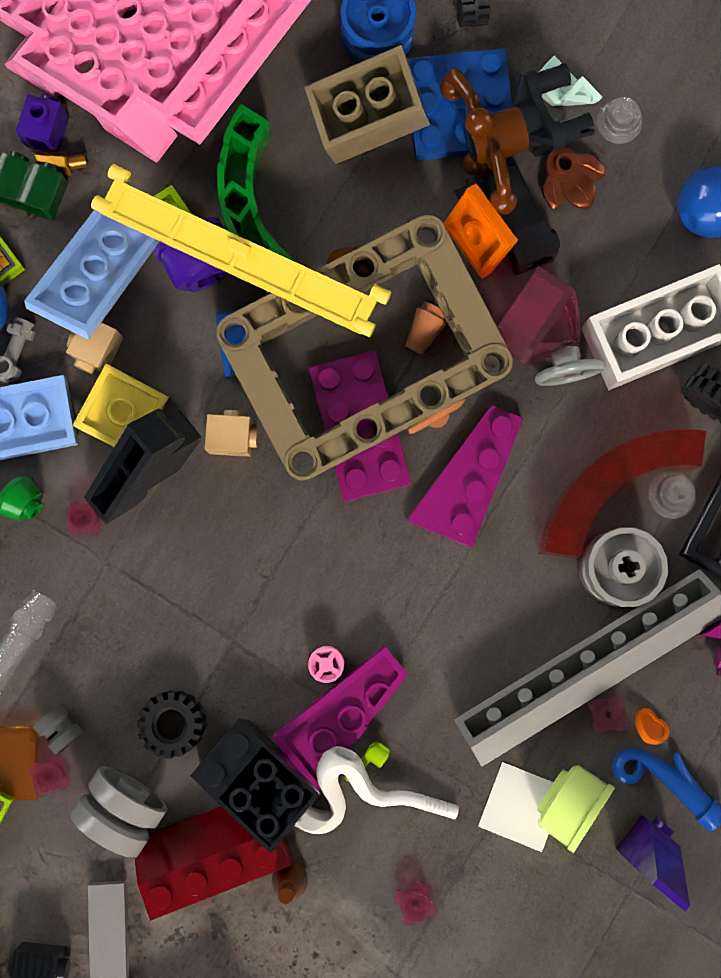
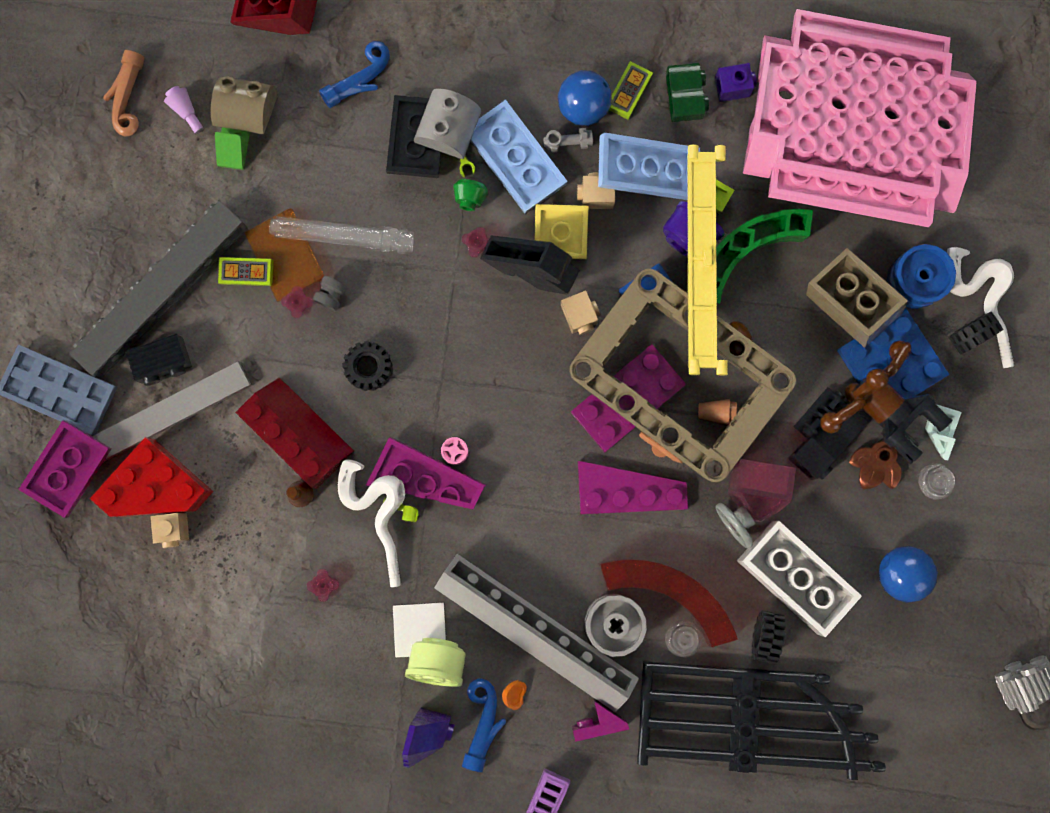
camera: 65 degrees right, 0 degrees up
(63, 160) = (715, 107): pearl gold bar -> none
(118, 812) = (295, 358): light grey wheel -> none
(256, 783) = (354, 439): black slope -> none
(479, 231) = (803, 417): orange tile -> none
(598, 710) = (508, 668): clear pink plate -> none

